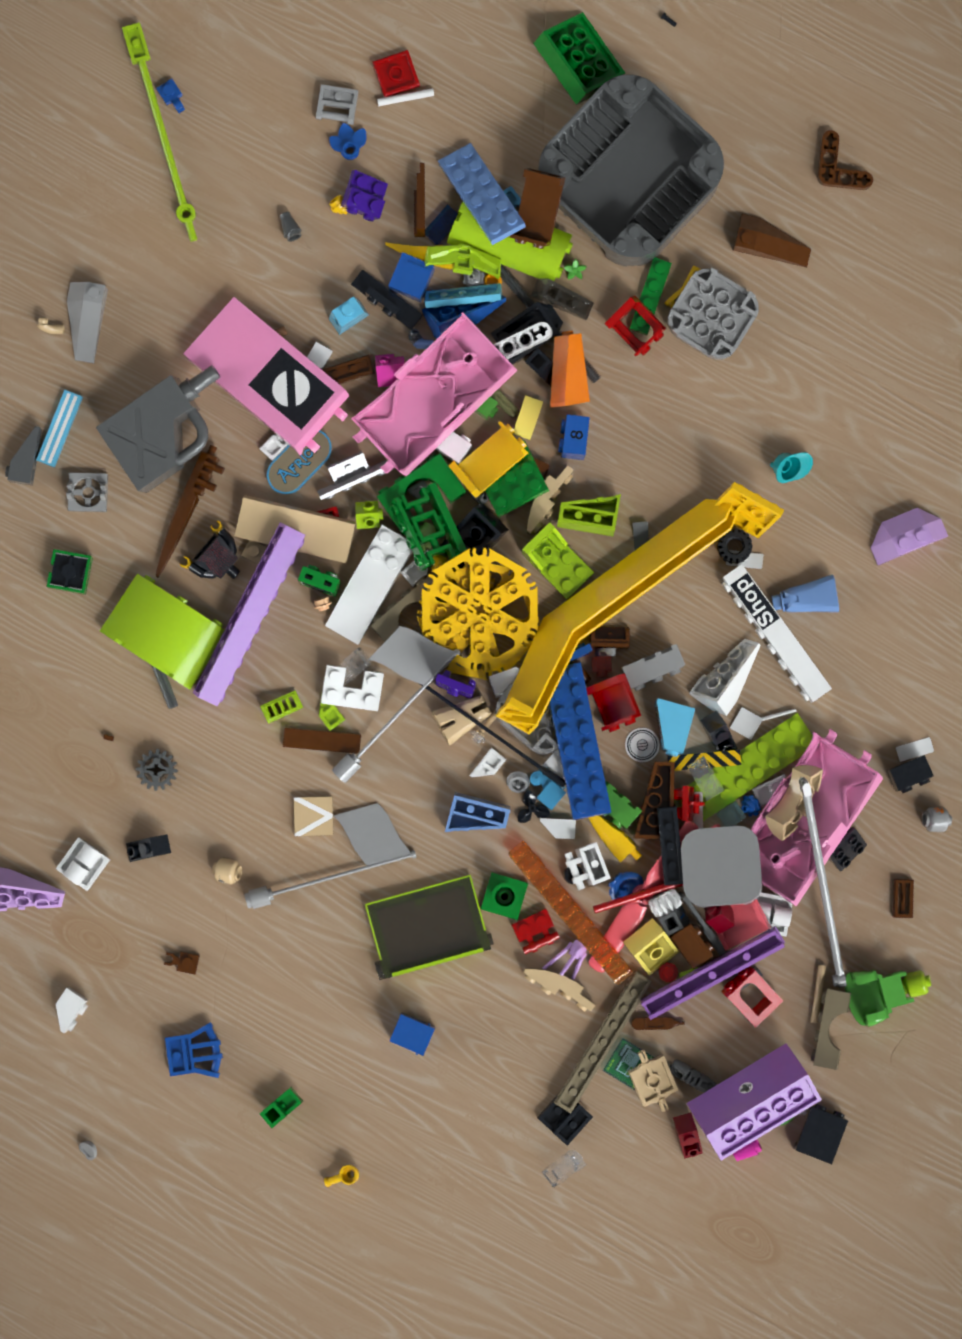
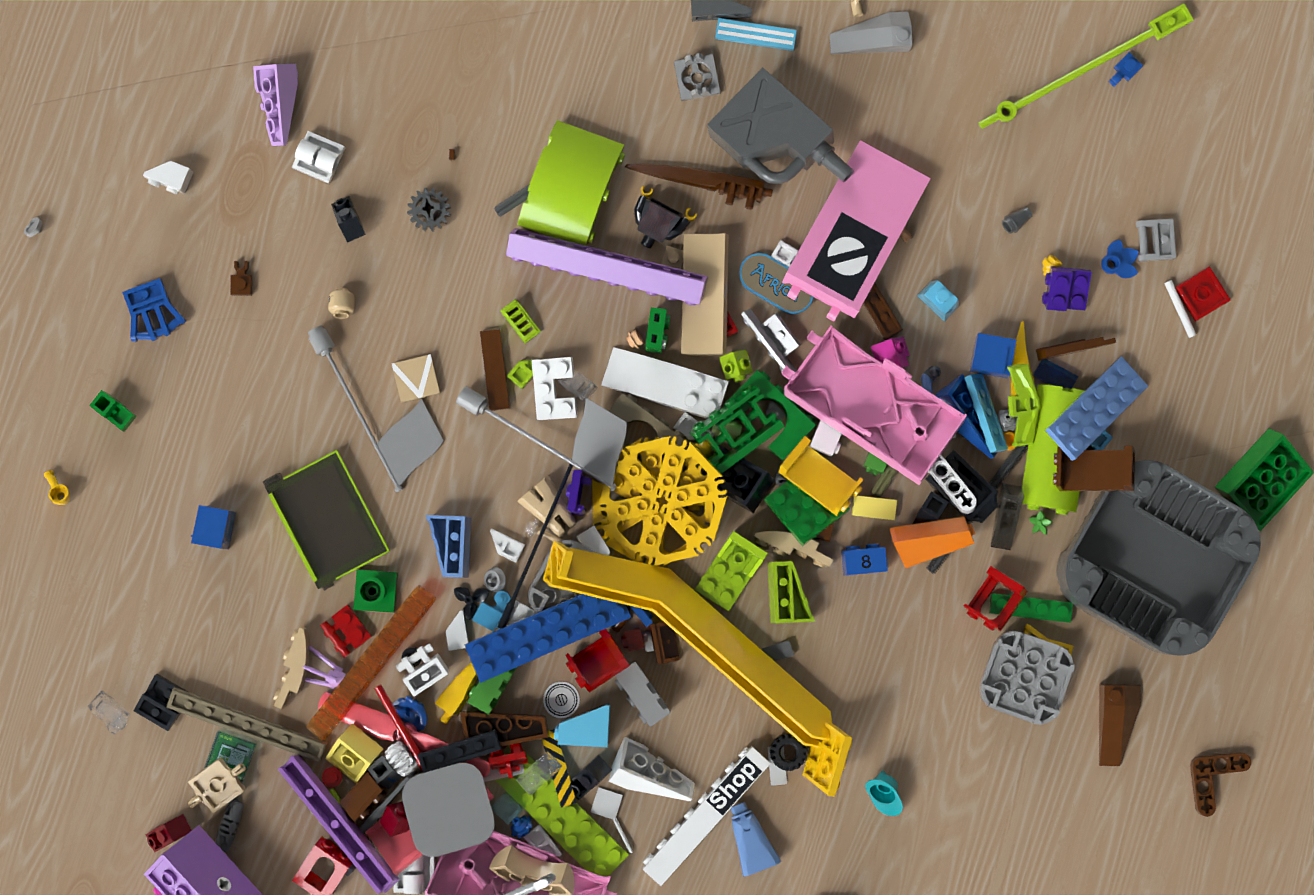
camera: 85 degrees right, 0 degrees up
(69, 572) = (611, 77): black piece -> none
(319, 355) = (889, 279): white tile -> none
(389, 302) = (962, 338): black bracket -> none
(656, 1023) = (278, 781): reddish brown piece -> none

